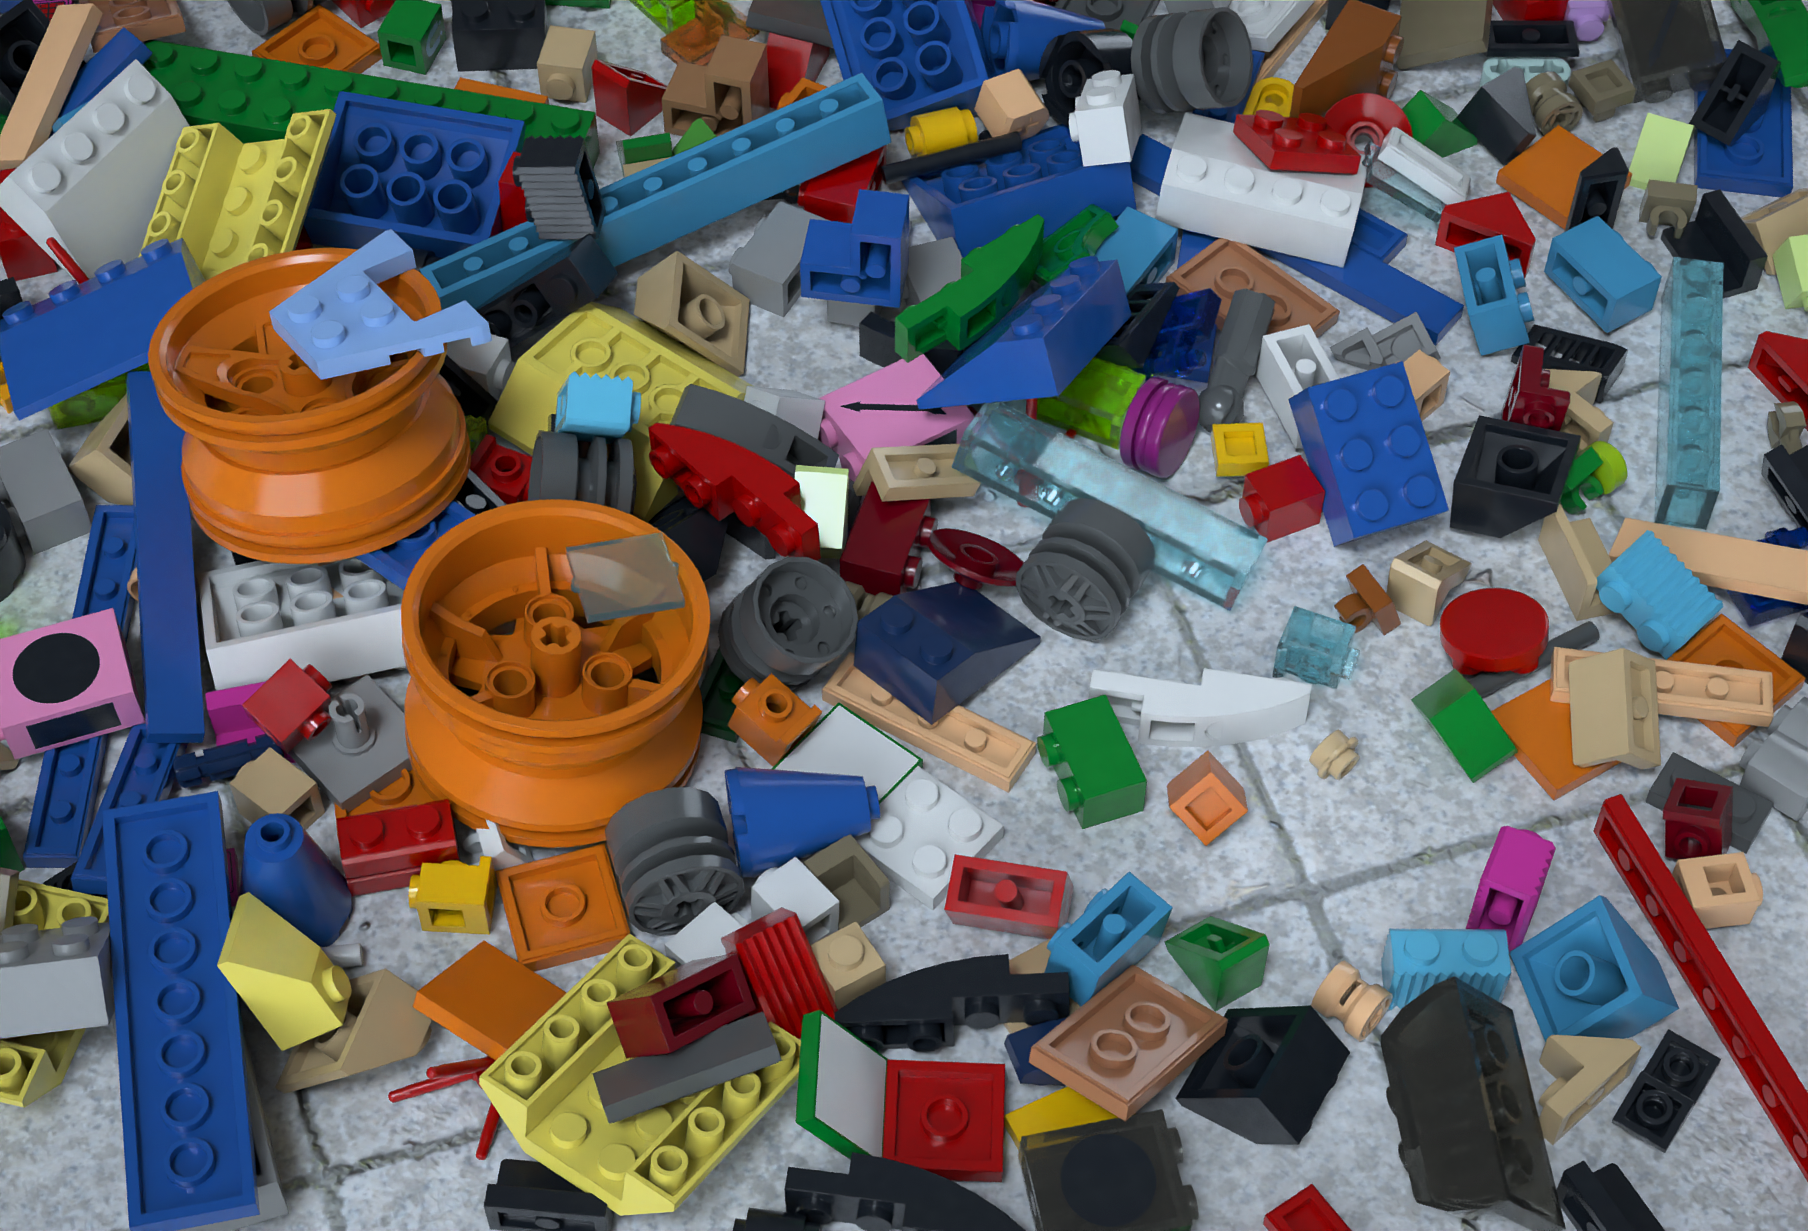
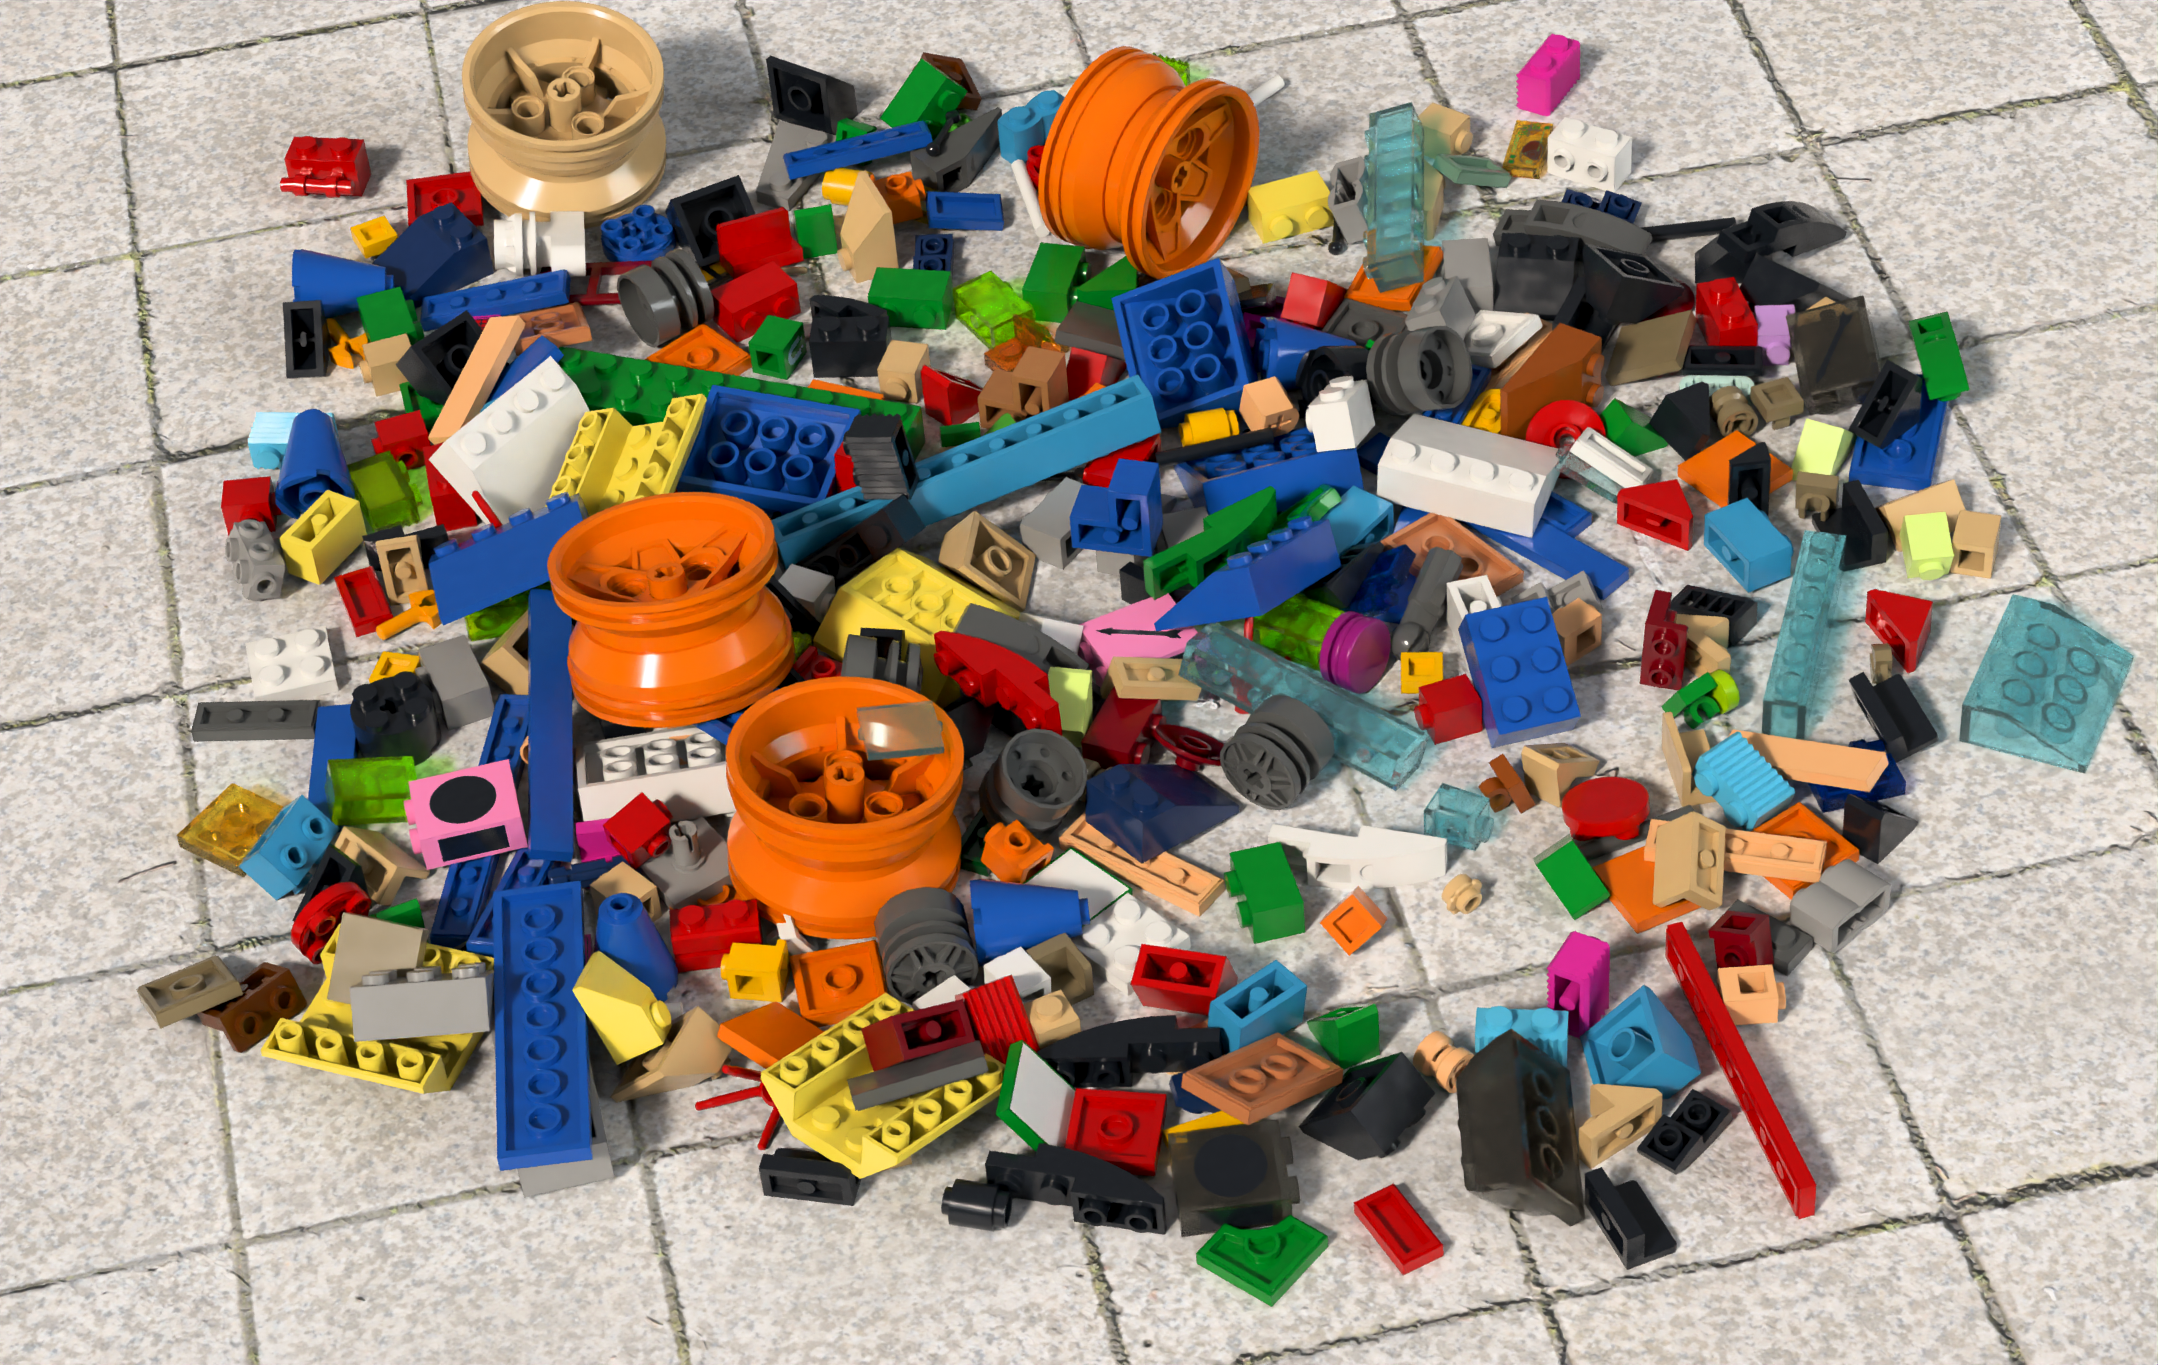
camera: 10 degrees right, 10 degrees down
(352, 325) = (706, 540): light blue wing -> none
(597, 407) = (895, 617): medium azure brick -> none
(1296, 143) = (1499, 437): red plate -> none
(1492, 294) = (1650, 556): dark azure brick -> none
(1510, 476) = (1633, 692): black slope -> none

